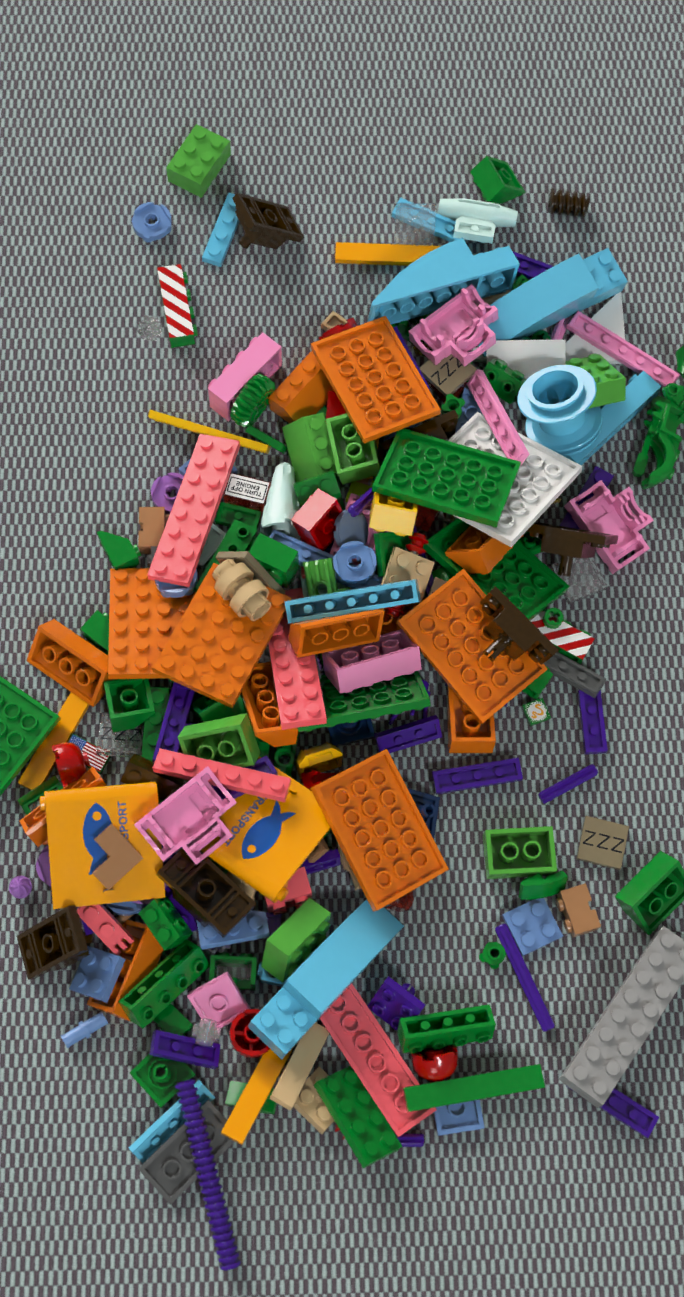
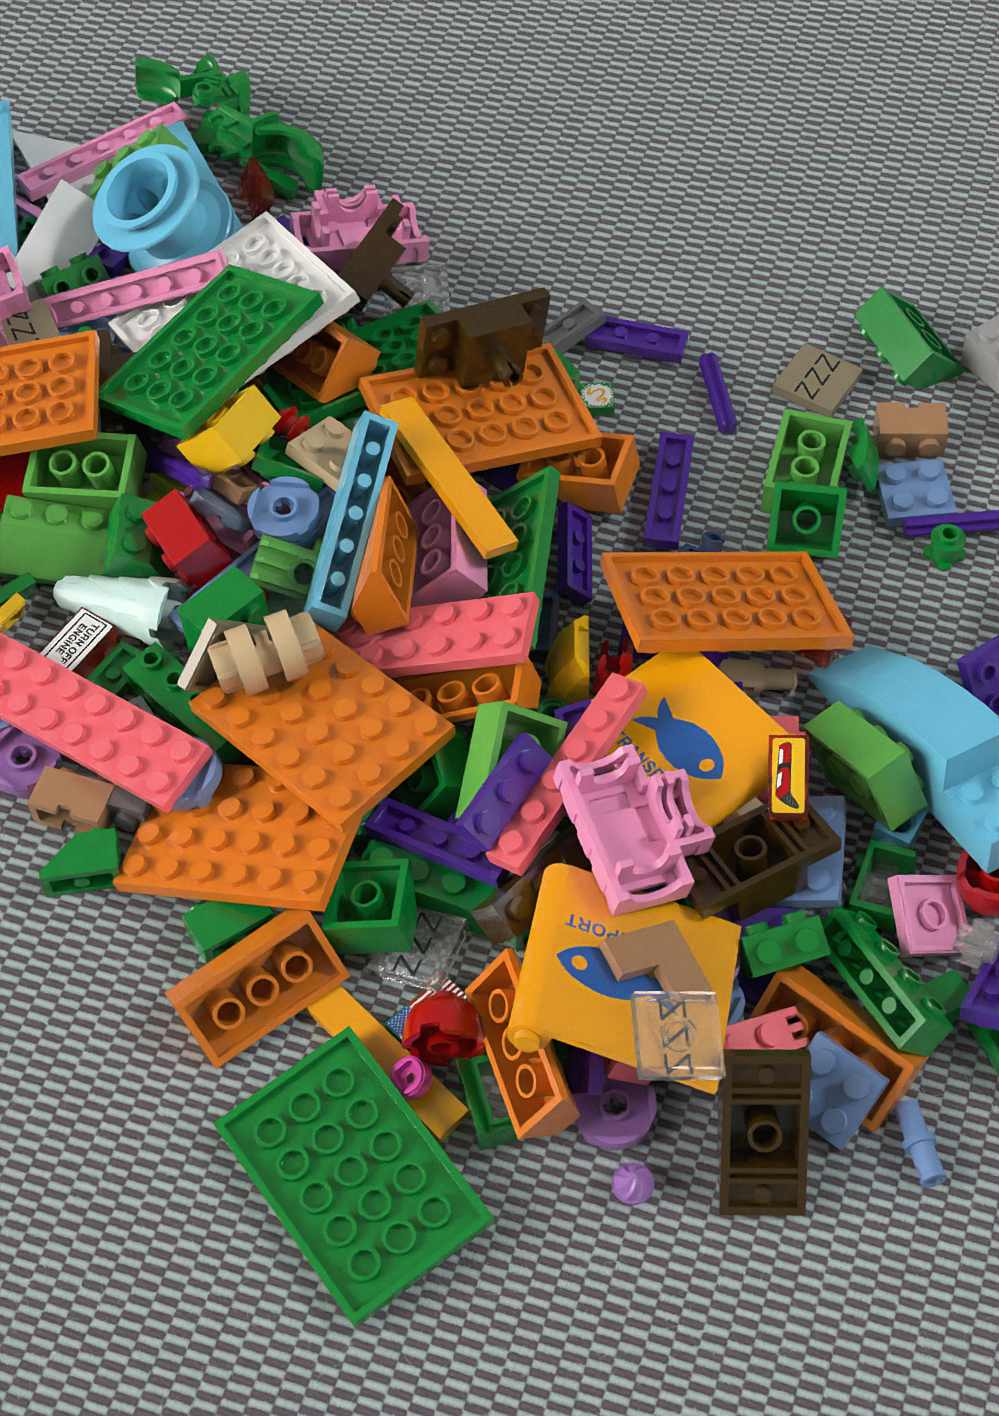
camera: 65 degrees left, 15 degrees down
(41, 757) = (411, 1077): none -> dark pink tile
(70, 878) = (677, 1035): none -> clear tile
(194, 744) = (503, 792): none -> dark purple plate
(252, 895) = (788, 777): none -> slope
(364, 533) = (236, 486): none -> medium nougat plate
(404, 643) = (450, 478): none -> light orange tile
(468, 863) = (806, 518): none -> green slope
(628, 450) = (256, 188): none -> clear red slope

